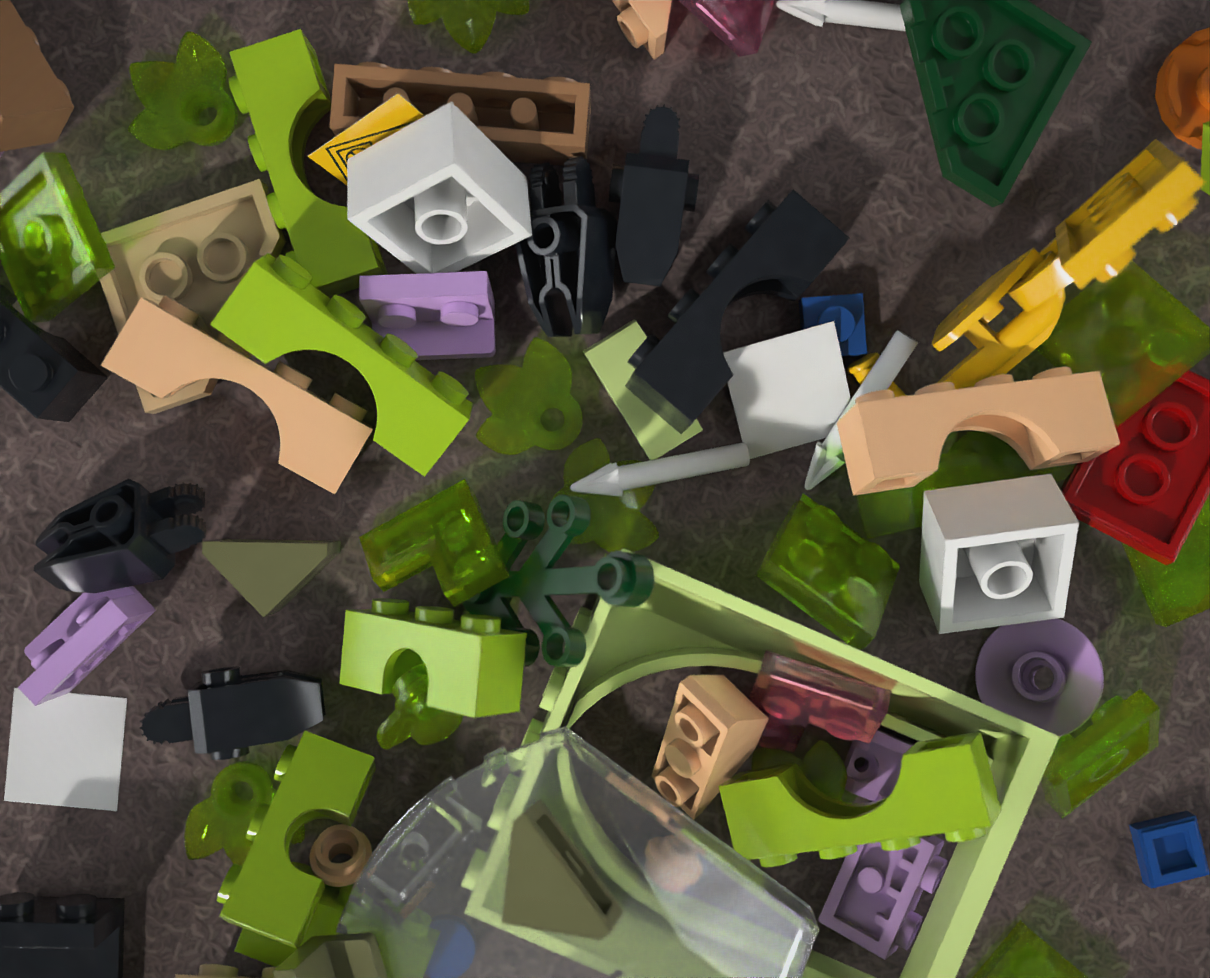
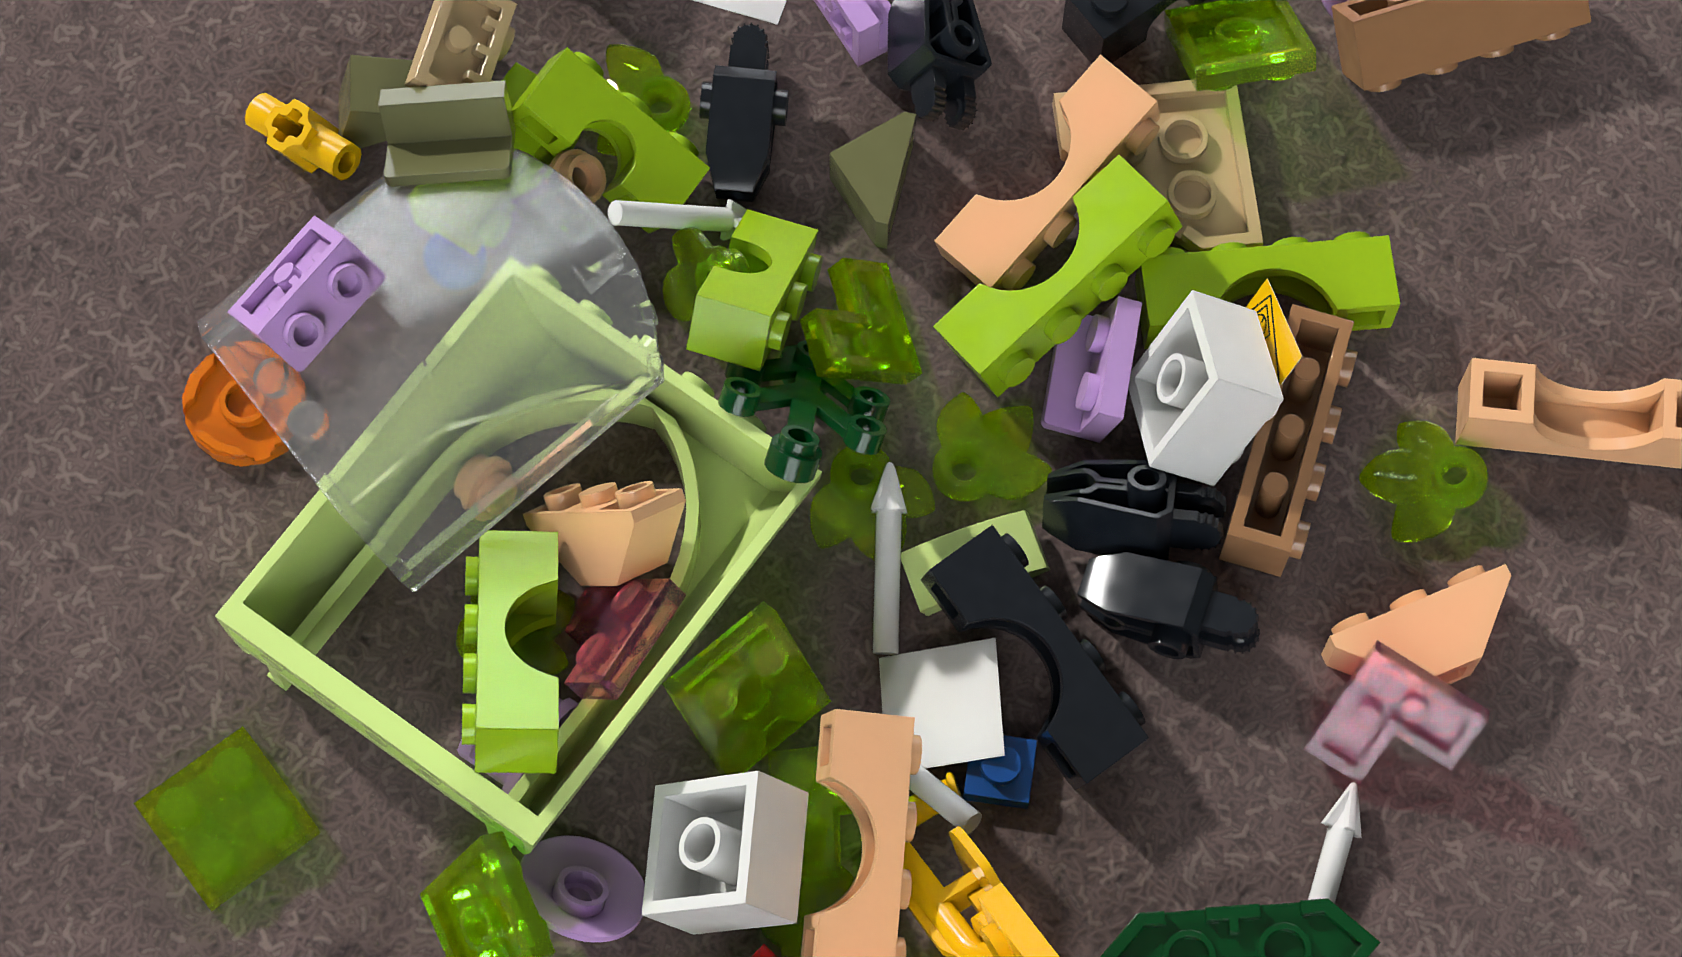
camera: 105 degrees right, 20 degrees down
(179, 94) = (1366, 188): clear neon green plate -> none
(366, 750) = (677, 216): none -> white piece
(552, 882) = (536, 322): olive slope -> none
(879, 892) = (407, 678): lavender bracket -> none

